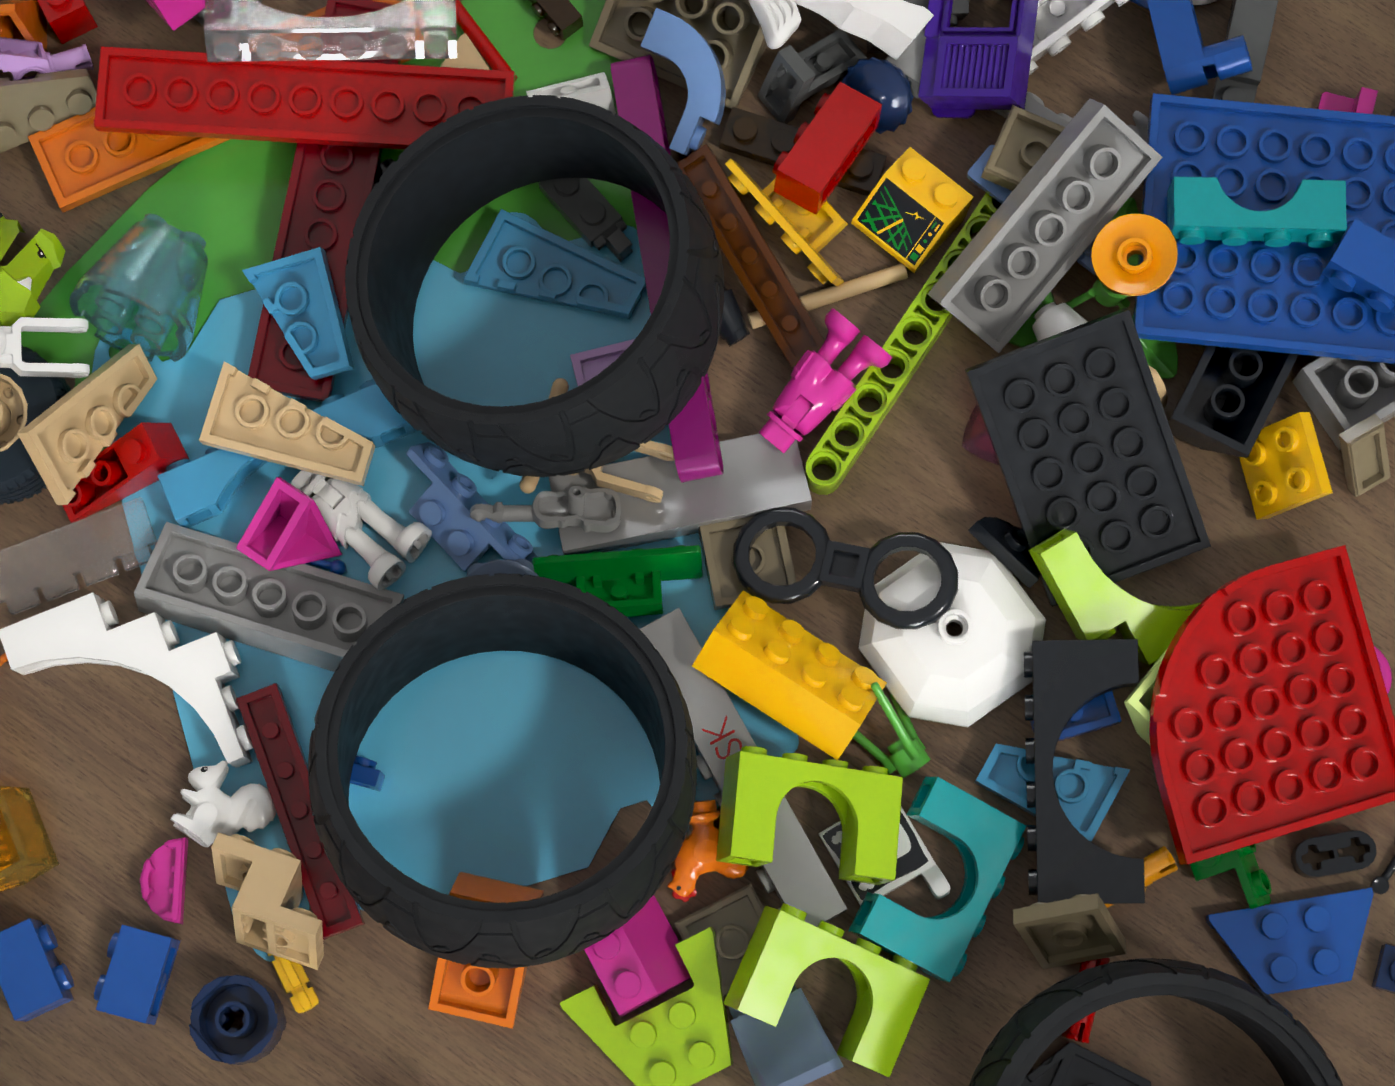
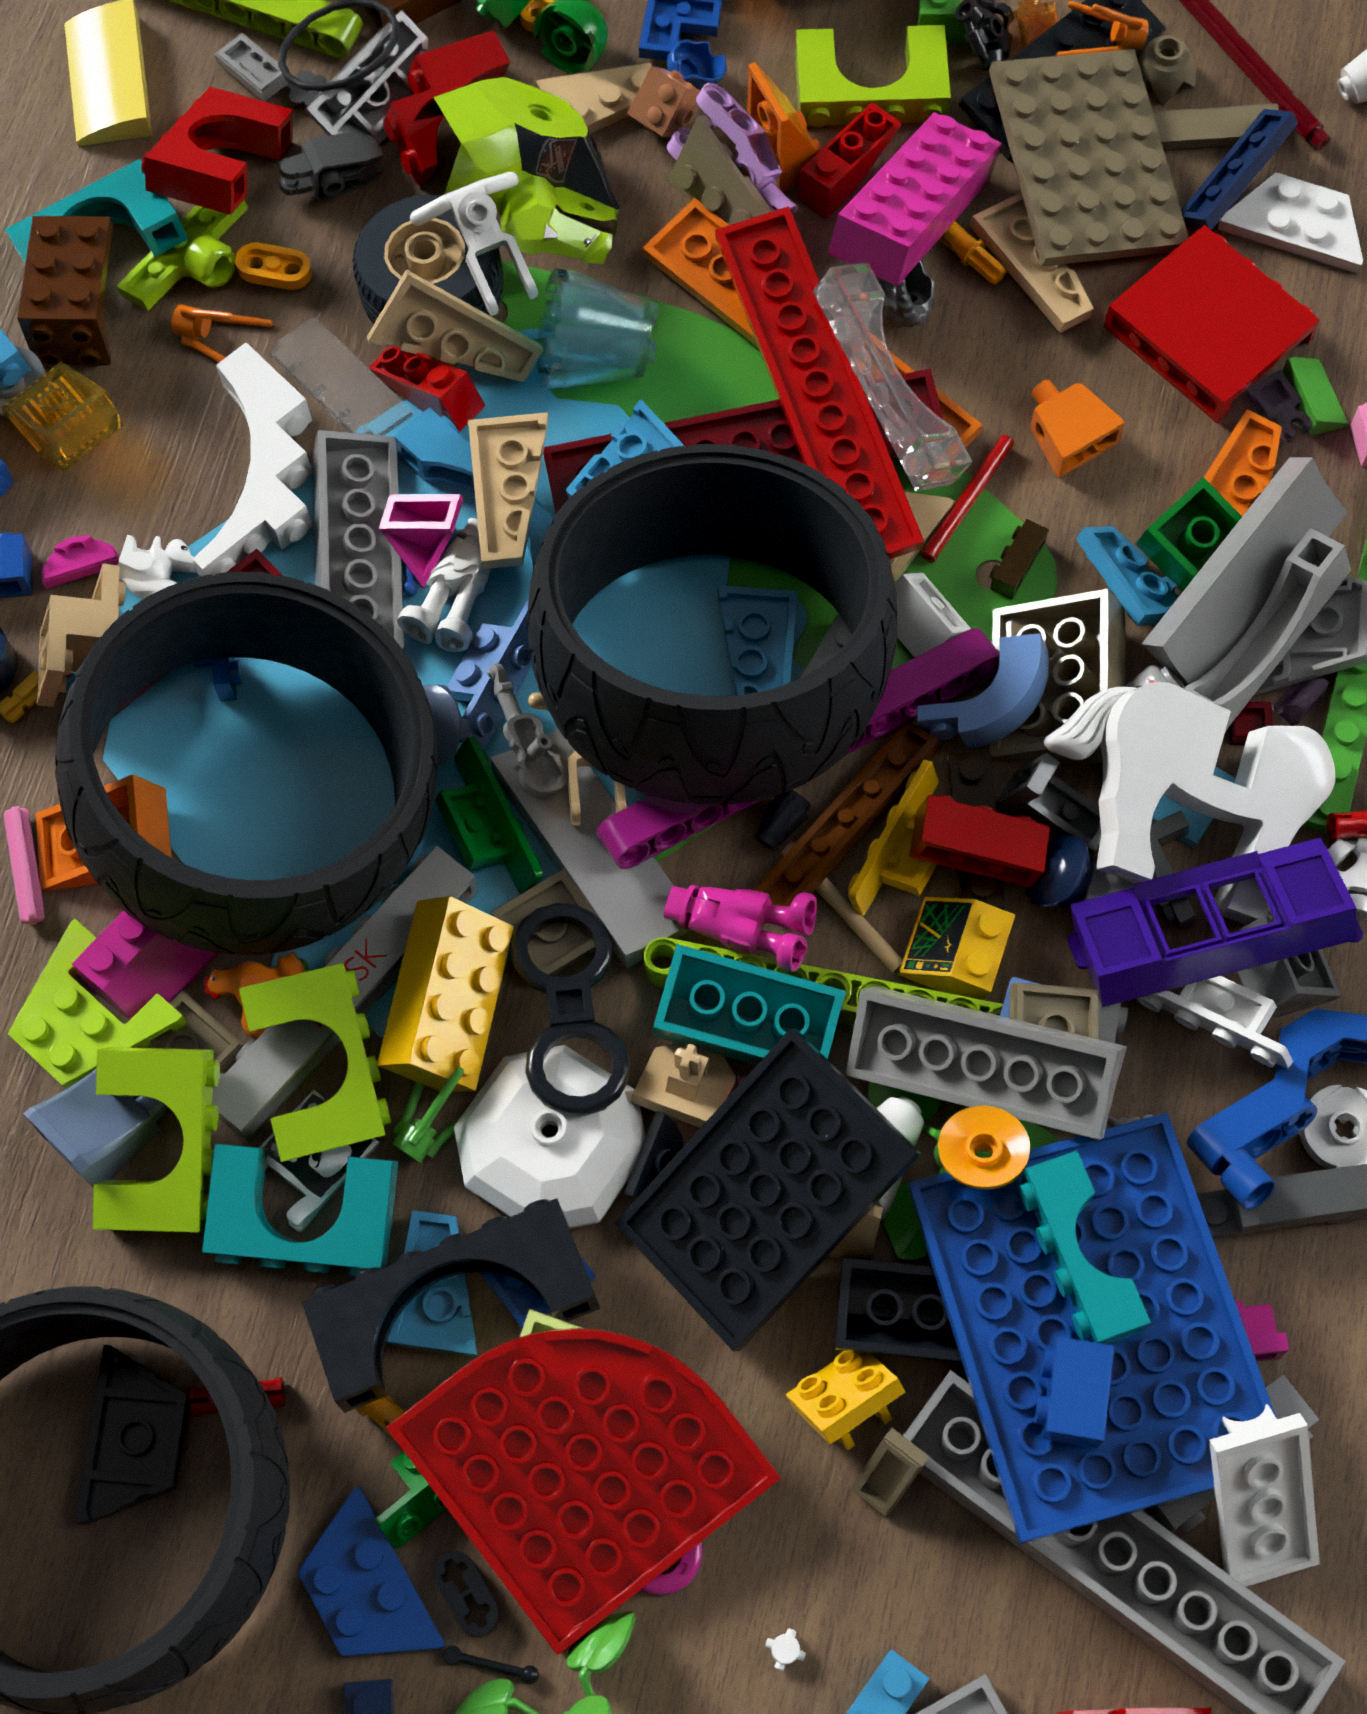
camera: 65 degrees right, 10 degrees down
(481, 1036) = (24, 865): none -> bright pink axle
(908, 414) = (741, 1007): none -> teal slope
(948, 495) = (684, 1083): none -> tan piece
(1069, 931) = (287, 1344): dark tan plate -> none
(1097, 604) = (628, 1257): lime arch -> none

